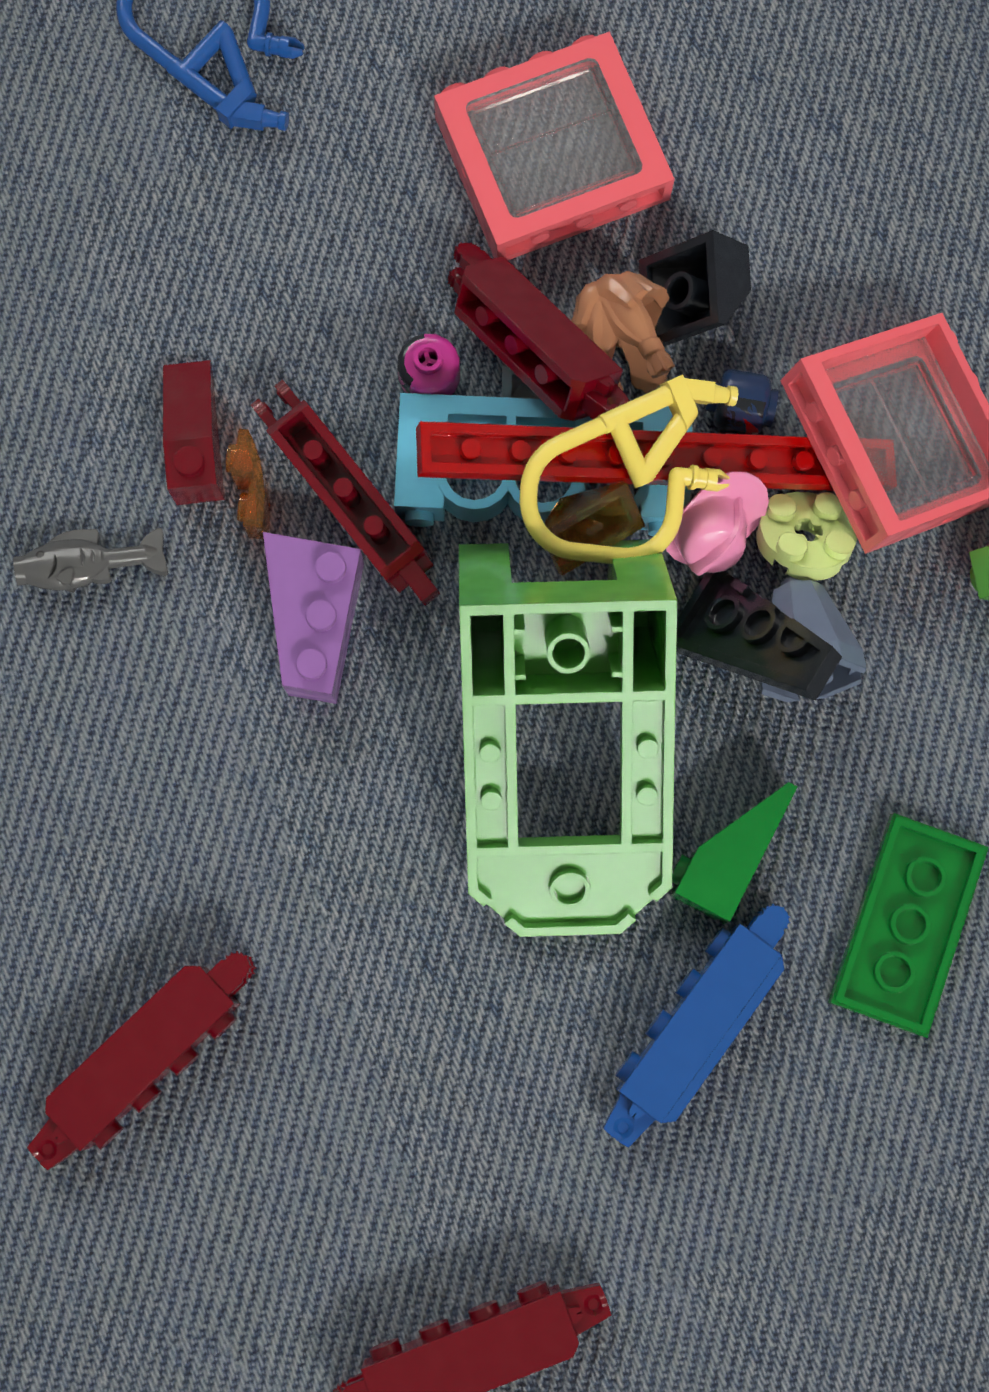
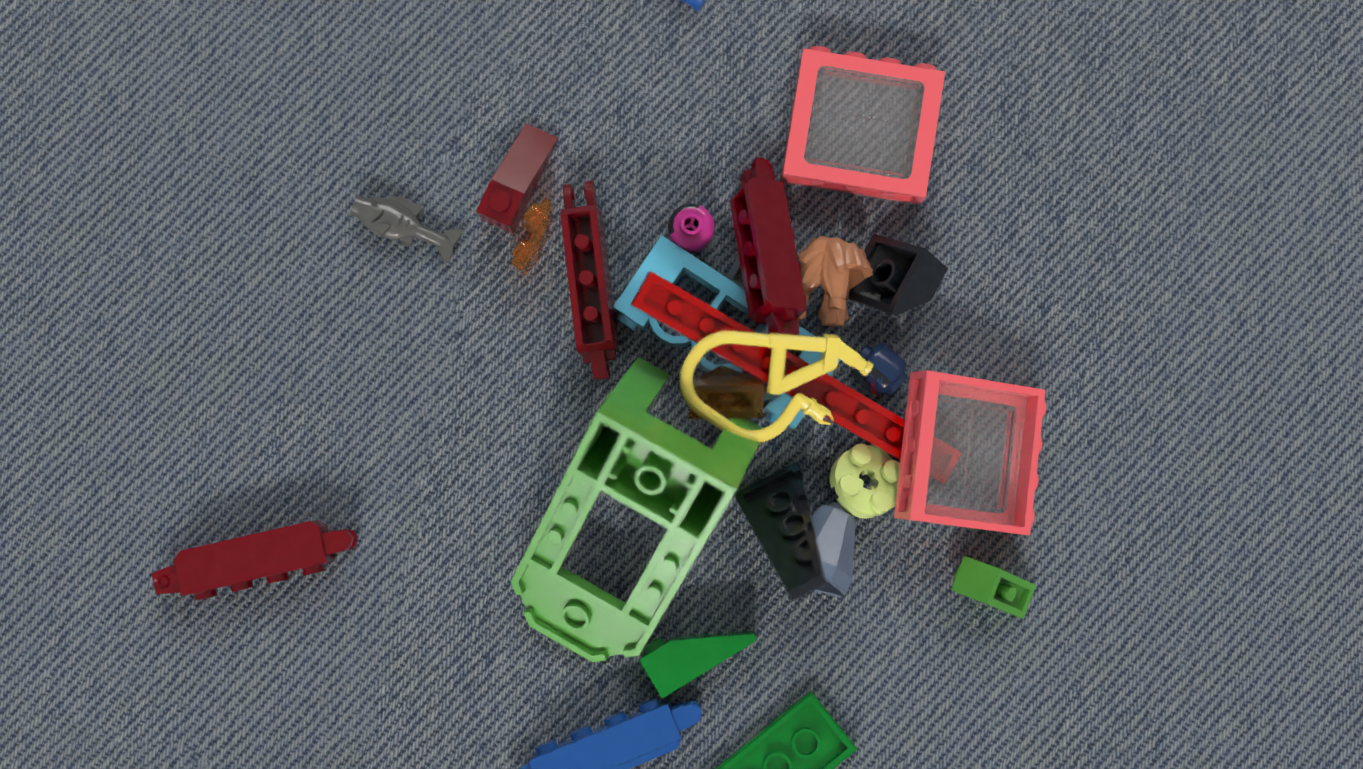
camera: 30 degrees right, 5 degrees up
(313, 611) = (522, 343): medium lavender wedge -> none
(718, 523) = (808, 444): bright pink piece -> none

